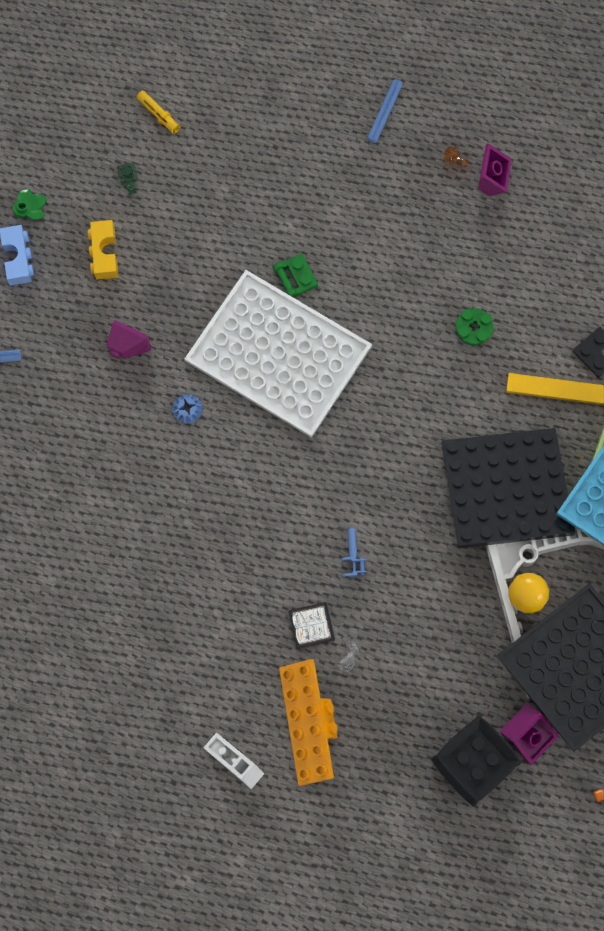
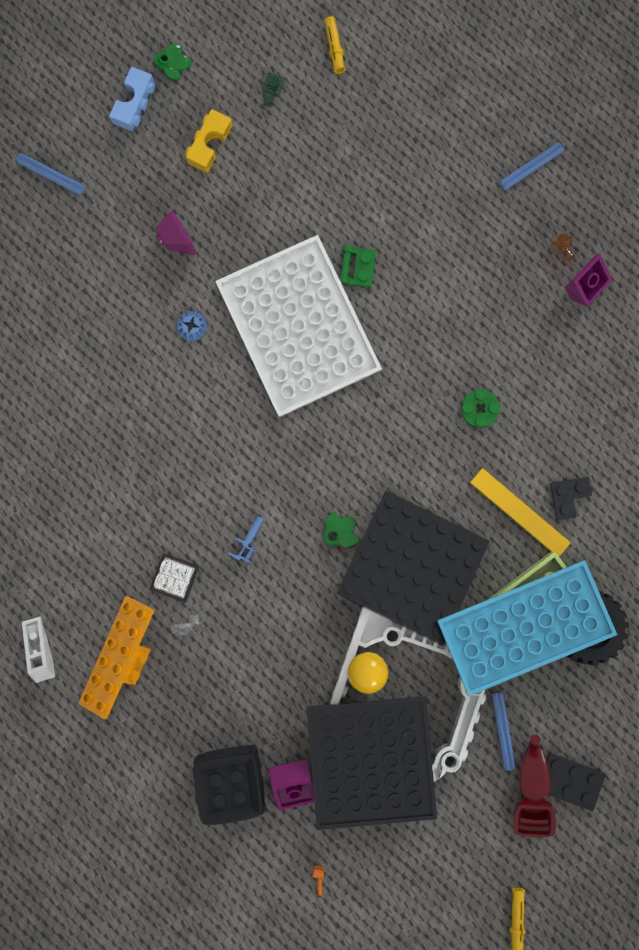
camera: 25 degrees right, 10 degrees up
(425, 495) = (342, 529): none -> green plate

